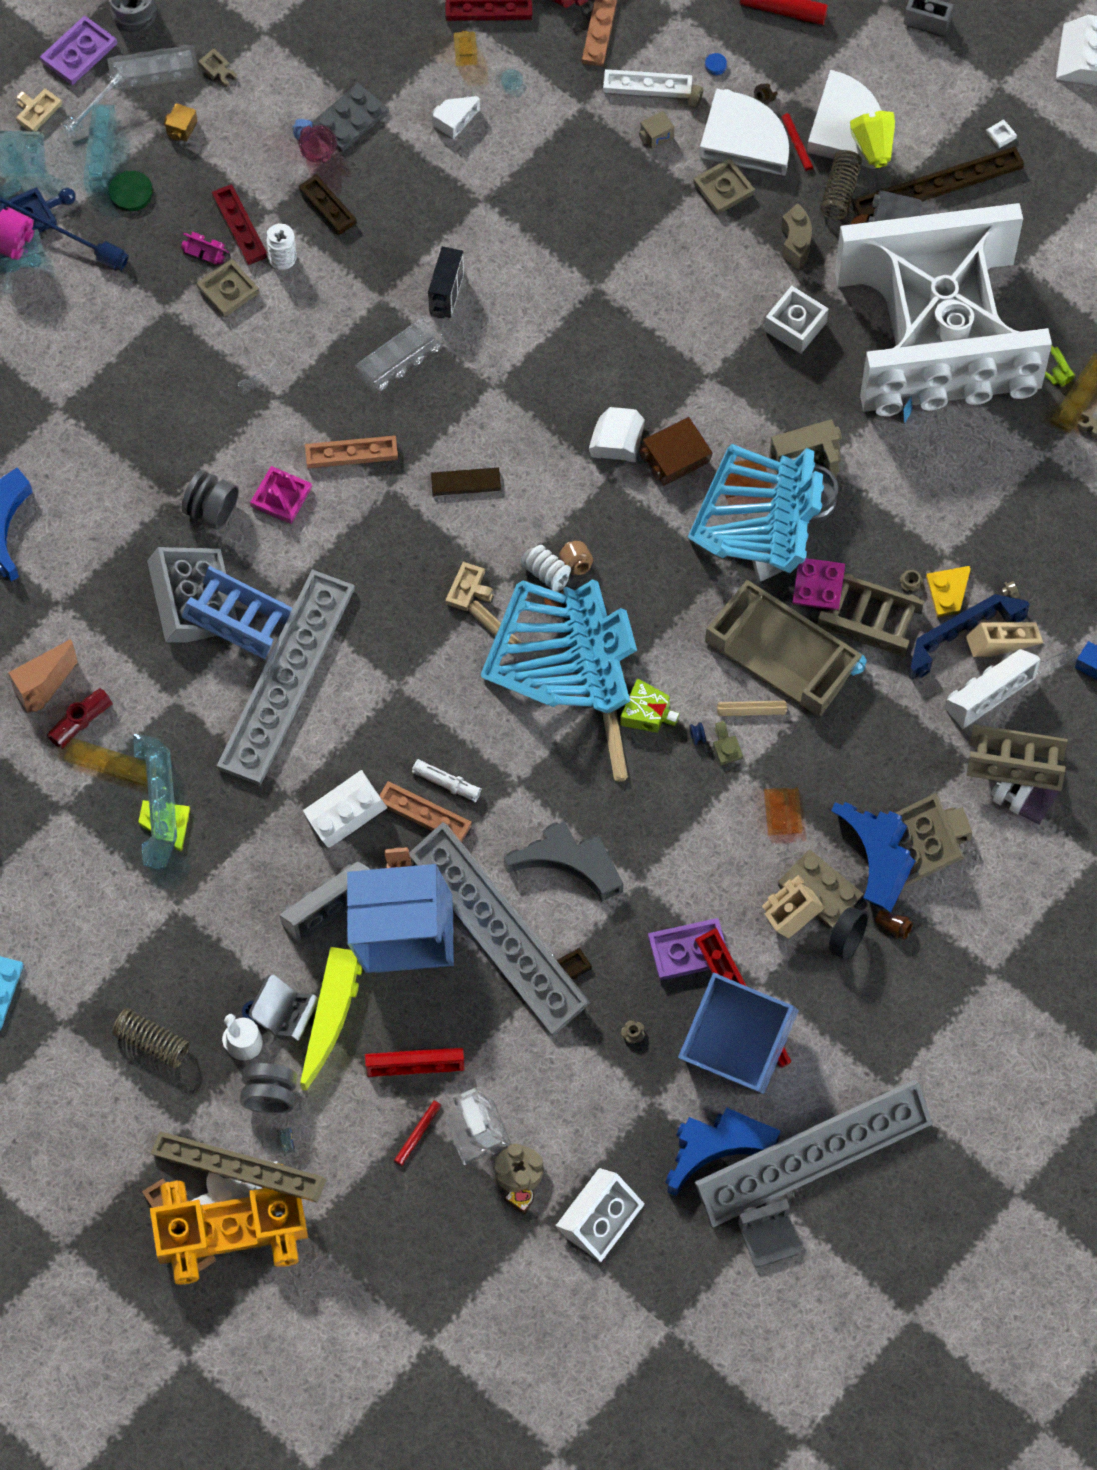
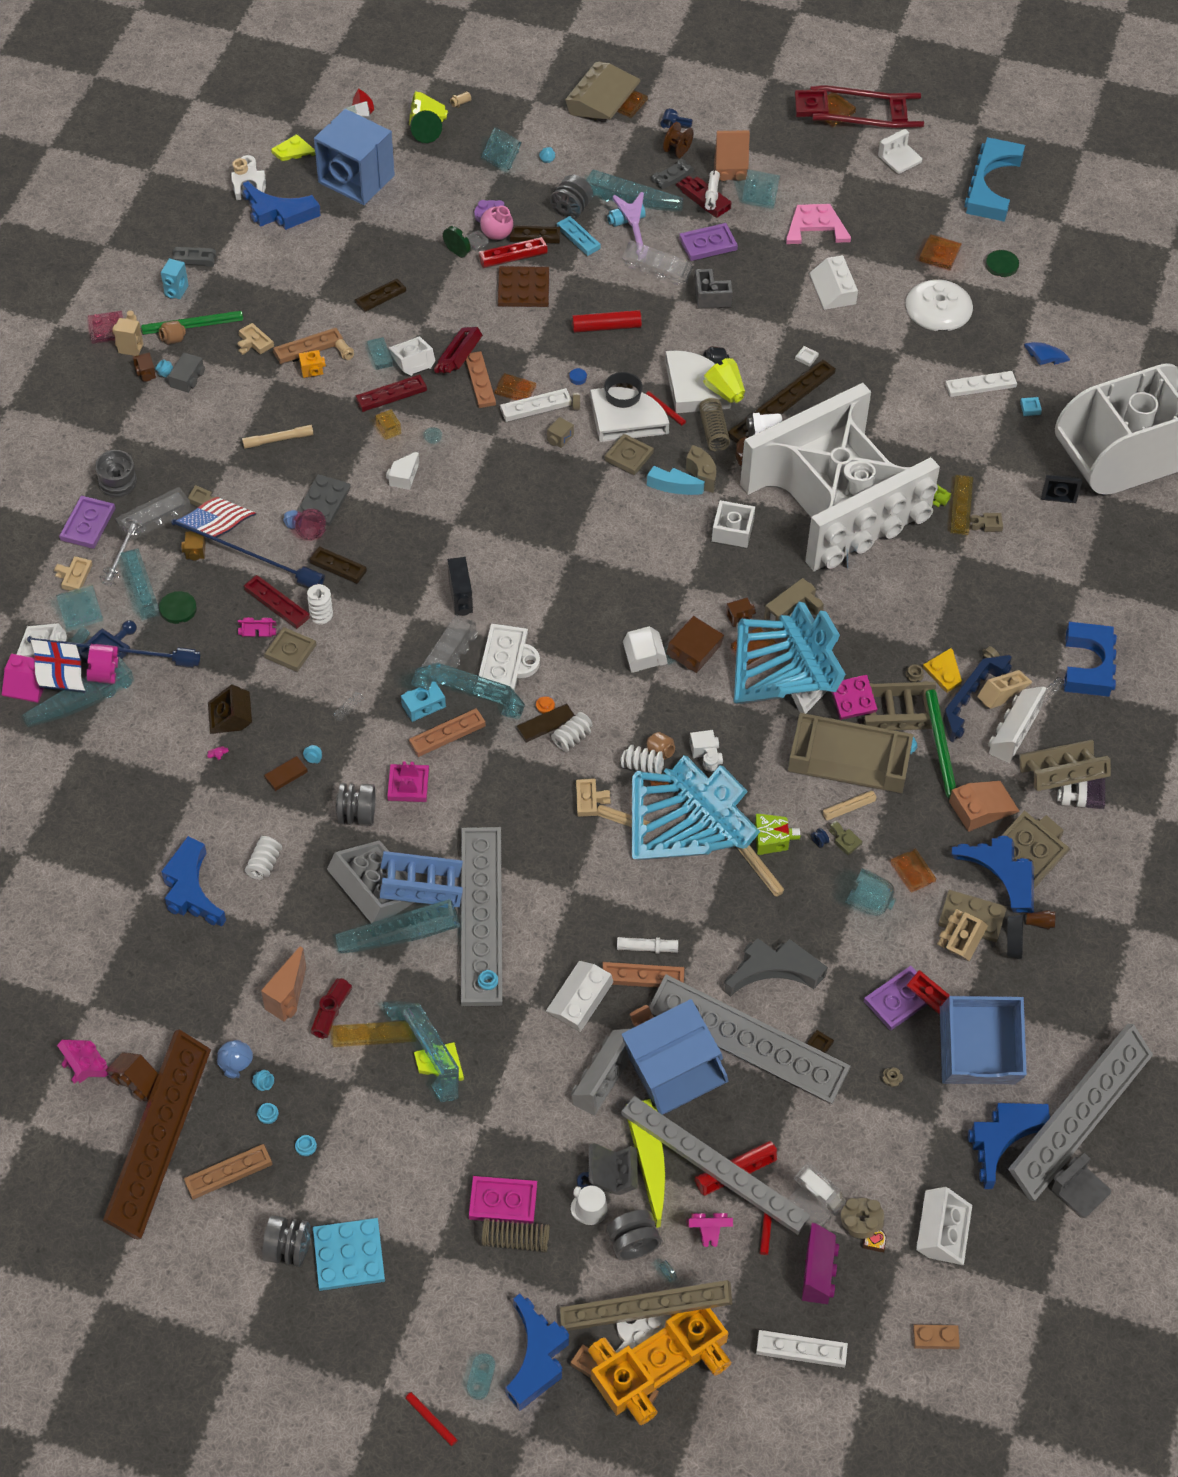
camera: 25 degrees left, 10 degrees down
(45, 1167) = (481, 1377): none -> clear light blue plate
(85, 521) = (263, 858): none -> white piece
(94, 380) = (217, 752): none -> dark pink plant
(123, 1161) = (538, 1369): none -> blue arch
(129, 337) = (230, 710): none -> dark brown slope
(156, 433) = (286, 773): none -> reddish brown tile
(157, 996) = (503, 1200): none -> dark pink plate
(192, 658) = (400, 928): none -> clear light blue slope
(194, 422) = (313, 754): none -> medium azure plate
(221, 98) = (220, 517): none -> flag
(254, 747) = (488, 975): none -> medium azure plate
(311, 15) = (279, 436): none -> tan piece
(333, 413) = (416, 709): none -> medium azure brick
(350, 378) = (471, 684): none -> clear light blue slope
(351, 1111) = (709, 1227): none -> dark pink plate
(384, 1277) = (801, 1348): none -> white plate
(389, 1050) = (716, 1165): none -> light grey plate
(444, 1199) = (819, 1265): none -> magenta slope
(458, 387) = (507, 655): none -> white plate
(474, 459) = (545, 704): none -> orange plate
(486, 503) = (572, 731): none -> white piece
(530, 1323) = (936, 1336): none -> medium nougat plate
(625, 576) = (705, 745): none -> white brick
(635, 52) = (515, 387): none -> clear orange plate
(716, 820) = (872, 894): none -> clear light blue cylinder
(749, 430) = (739, 609): none -> reddish brown brick
(751, 86) = (623, 377): none -> black tyre
(757, 240) = (674, 482): none -> medium azure slope
(889, 97) = (716, 354): none -> black head
(890, 677) = (940, 740): none -> green axle
(903, 764) = (982, 803): none -> nougat slope

